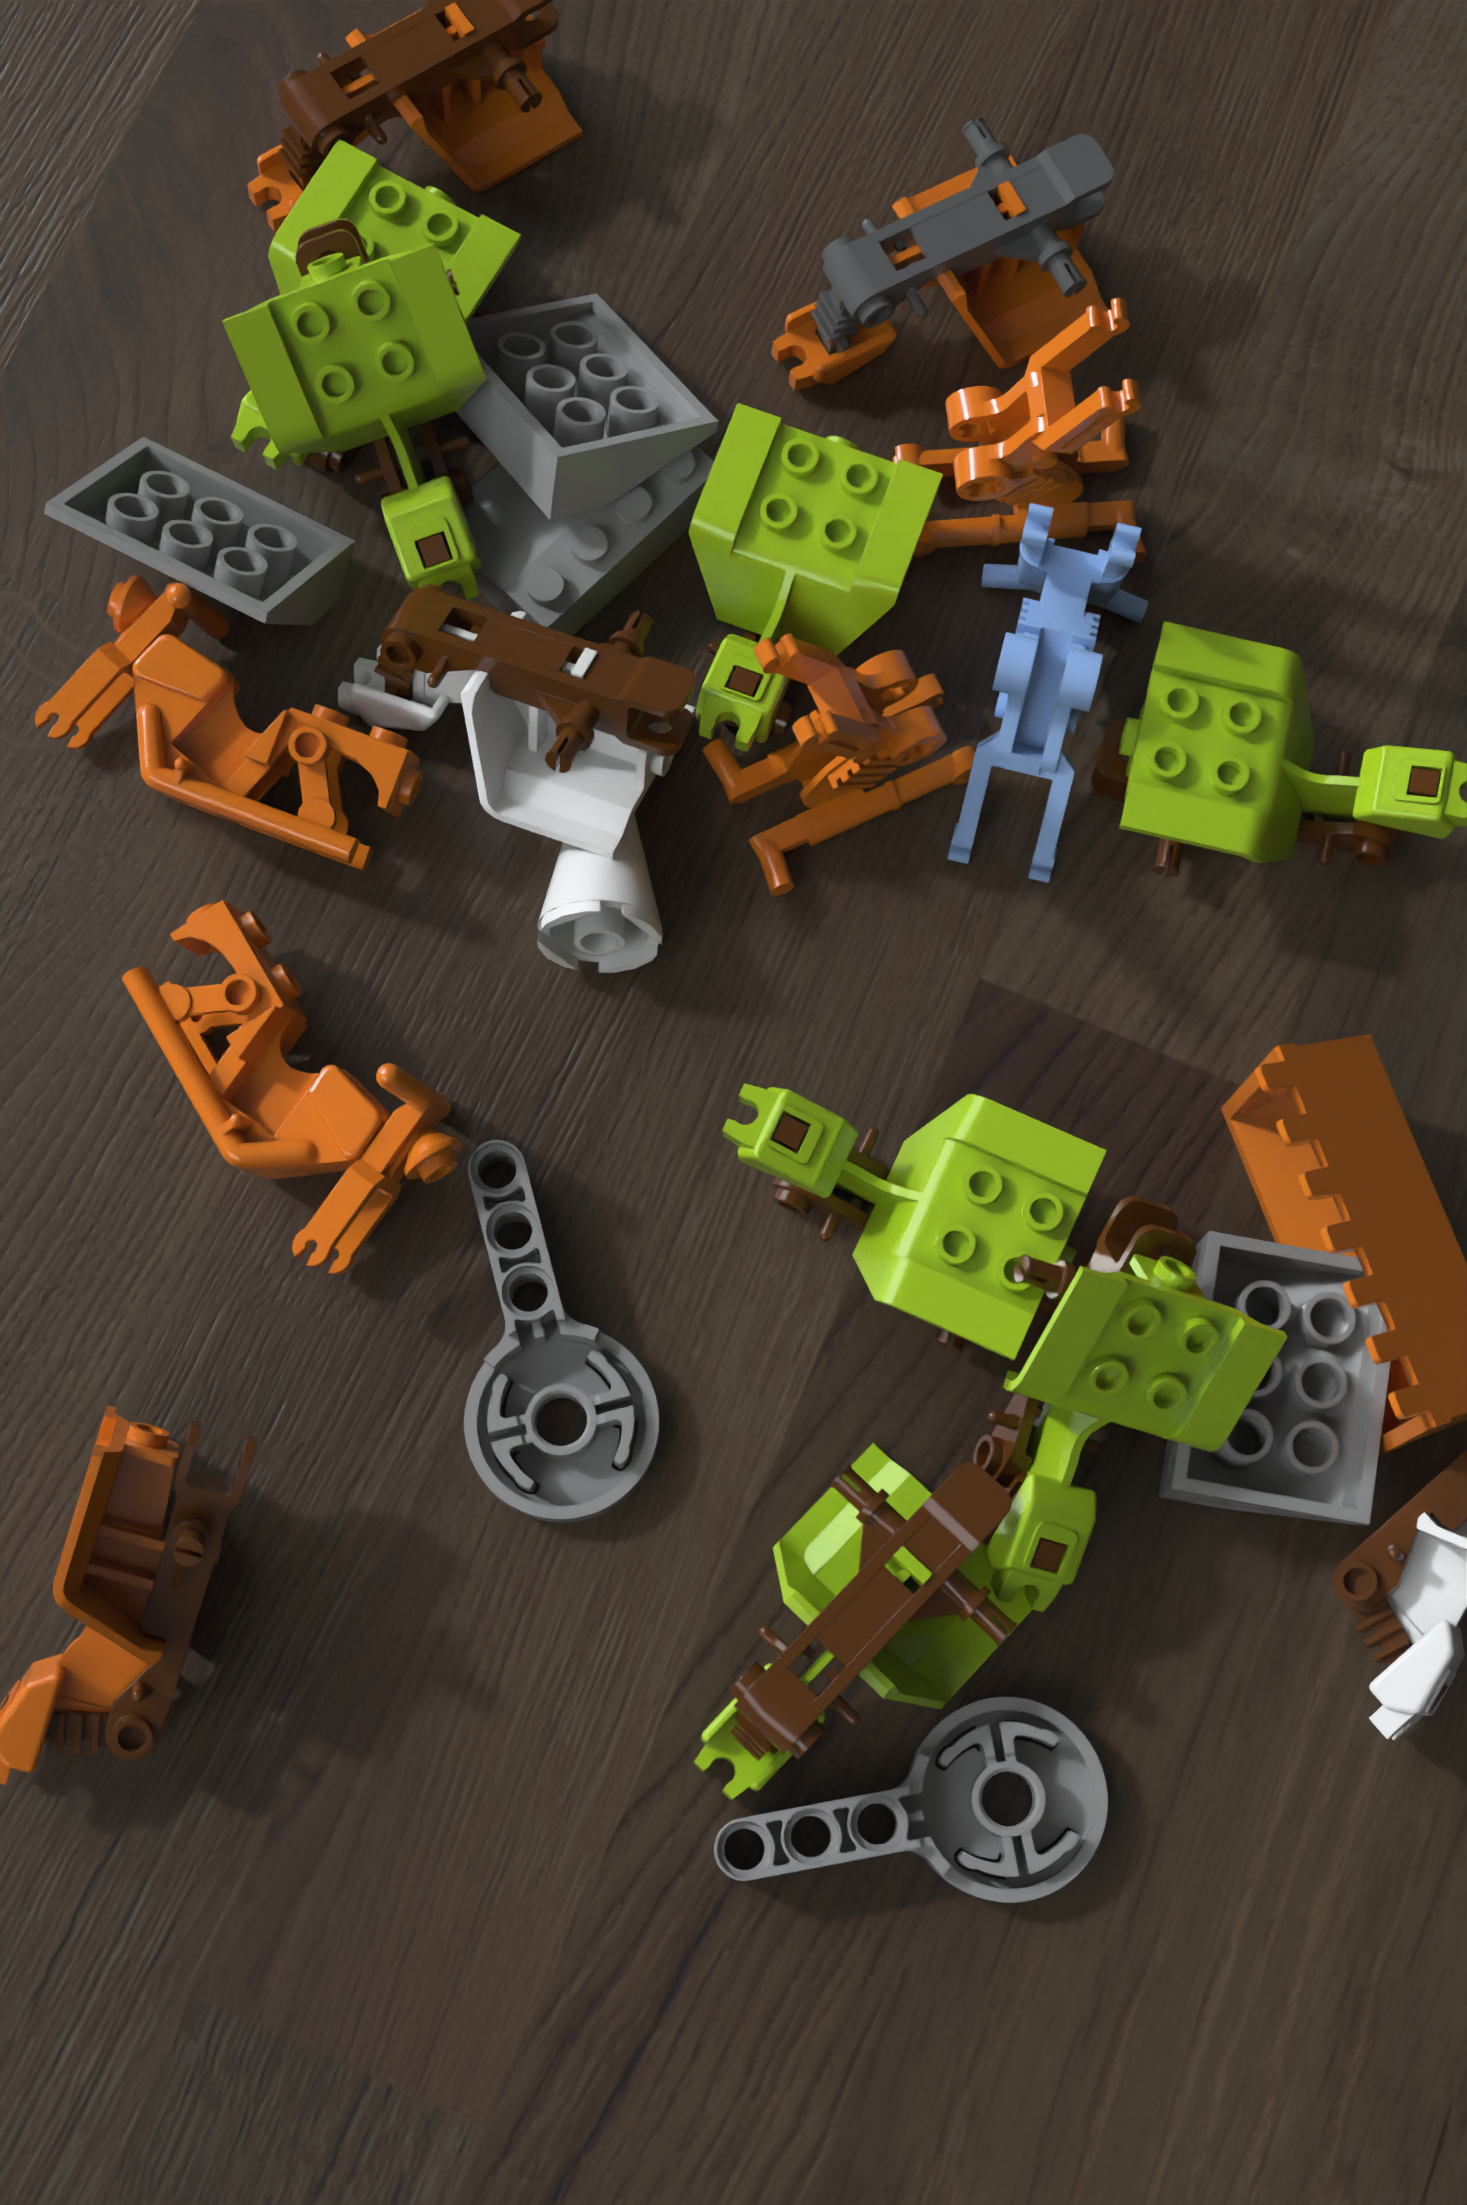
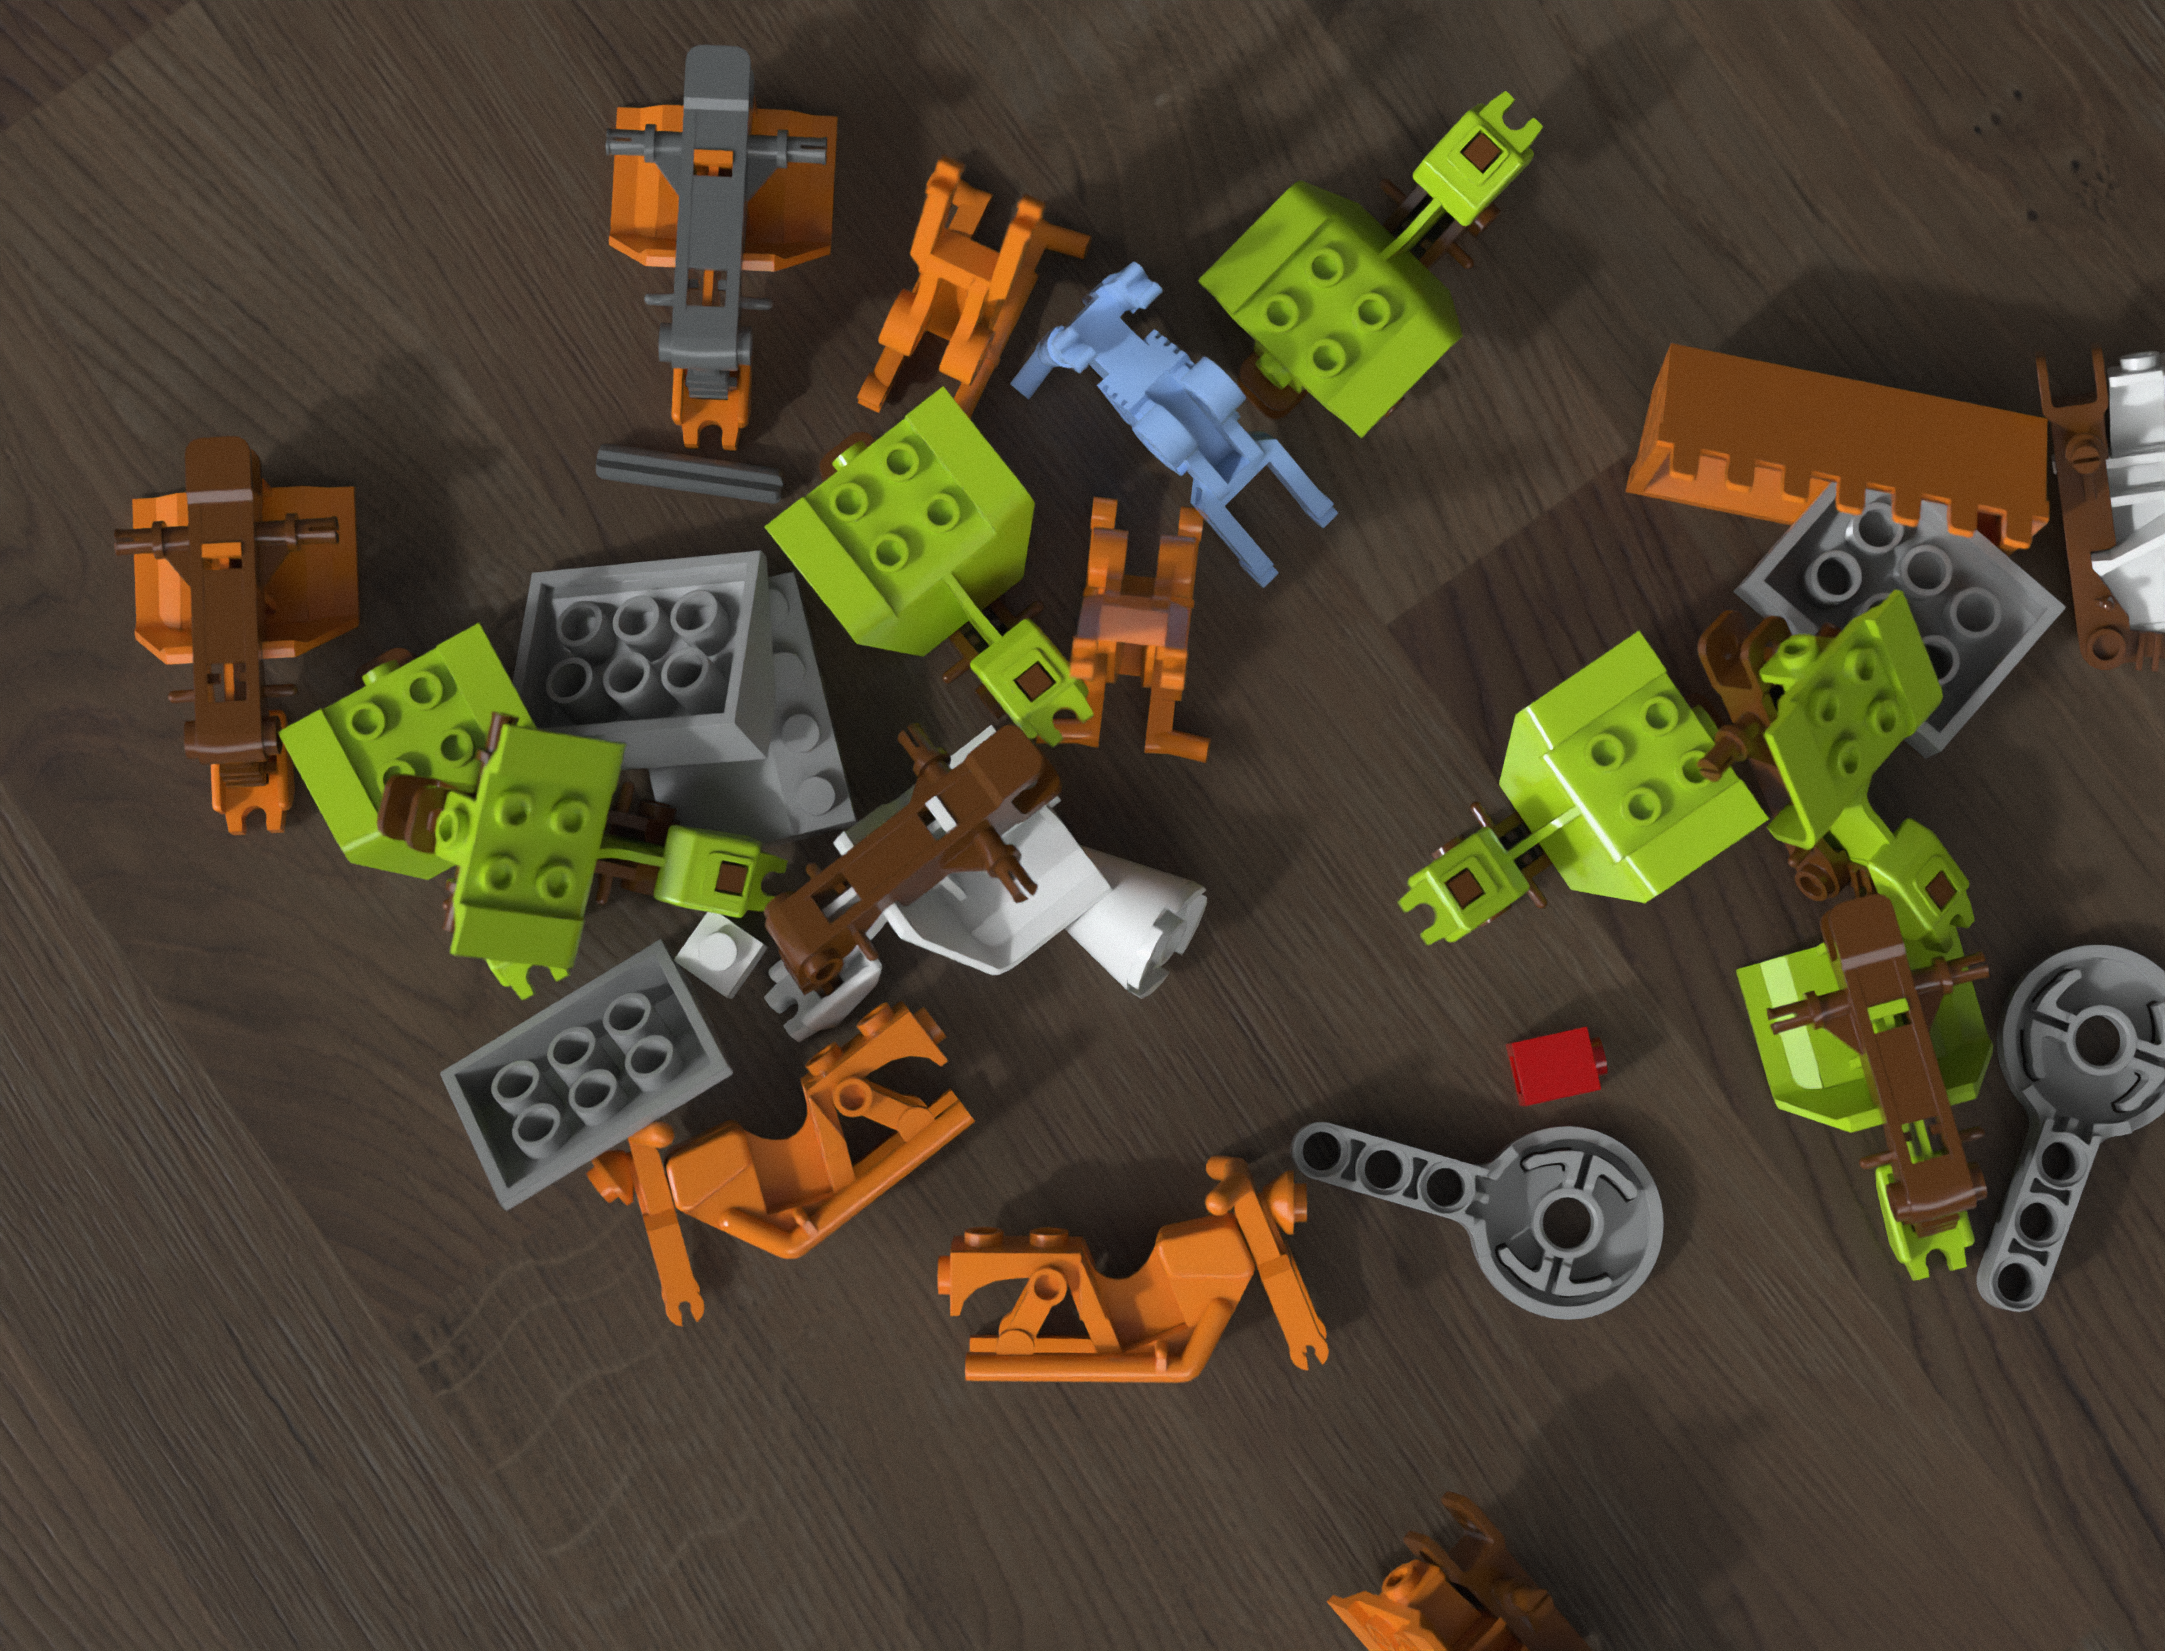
camera: 60 degrees left, 10 degrees up
(369, 596) = (721, 954): none -> white brick
(692, 1330) = (1556, 1066): none -> red brick
(748, 354) = (690, 473): none -> dark grey axle

